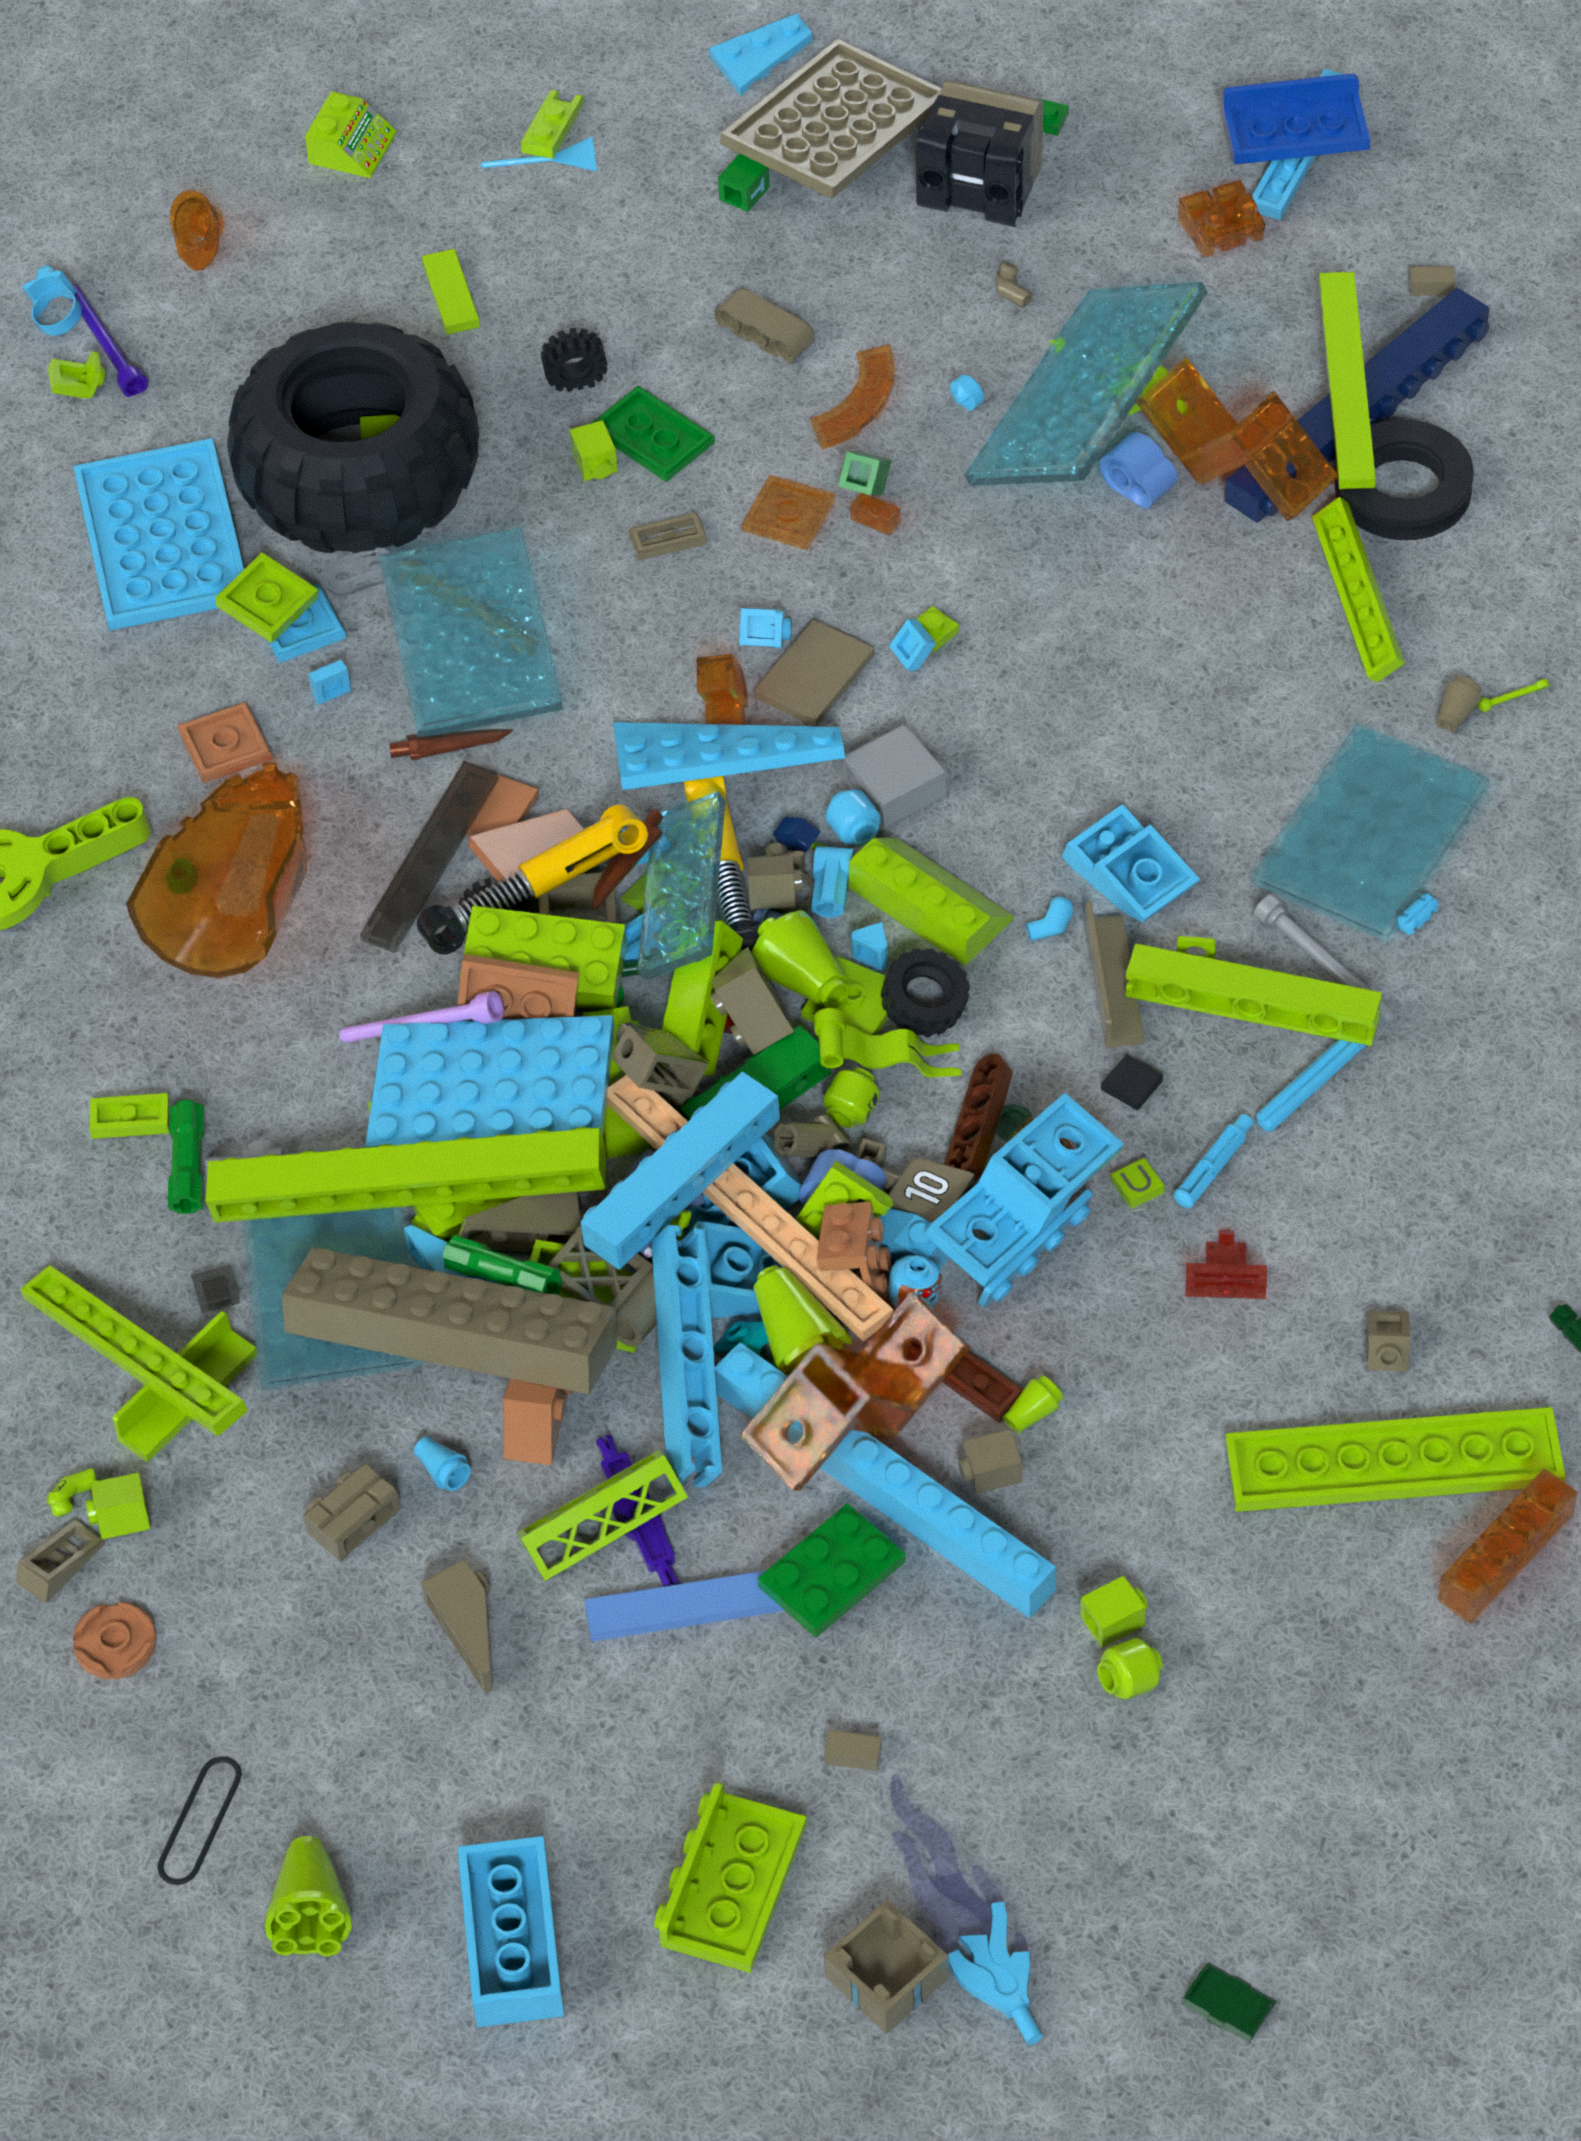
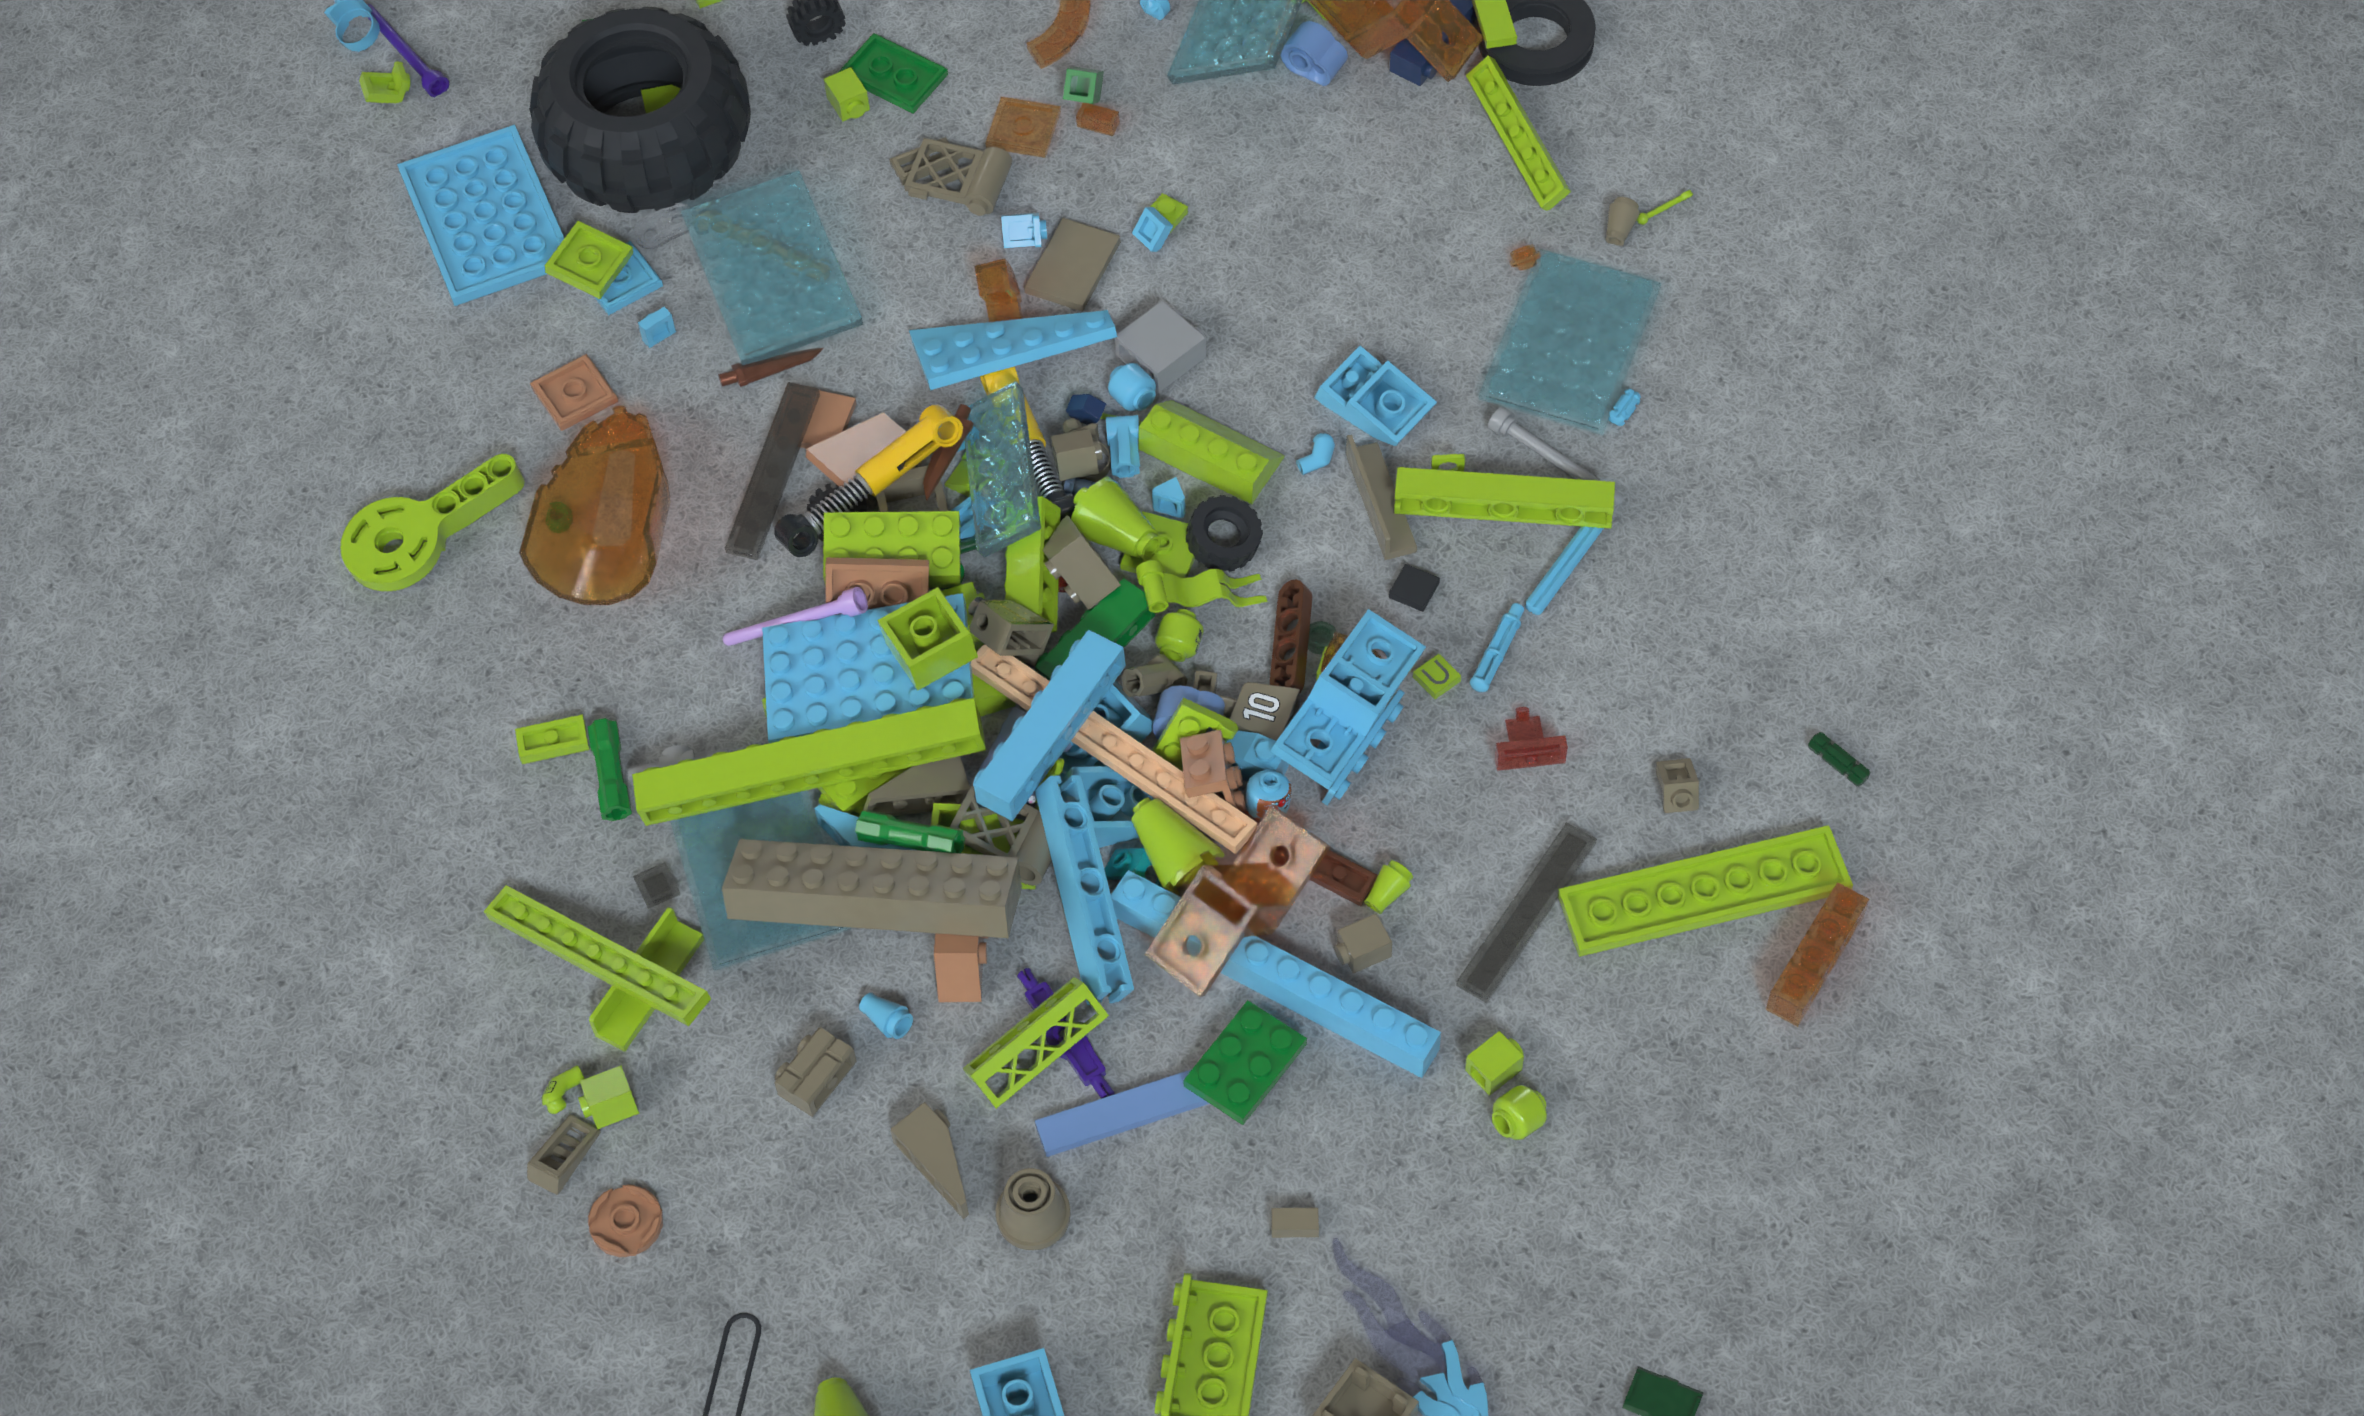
camera: 10 degrees left, 5 degrees up
(560, 1056) = (927, 638): none -> lime brick
(565, 1704) = (1032, 1223): none -> dark tan piece
(729, 563) = (982, 181): none -> dark tan piece
(1184, 1455) = (1526, 913): none -> clear smoke tile
(1336, 730) = (1524, 257): none -> clear orange plate

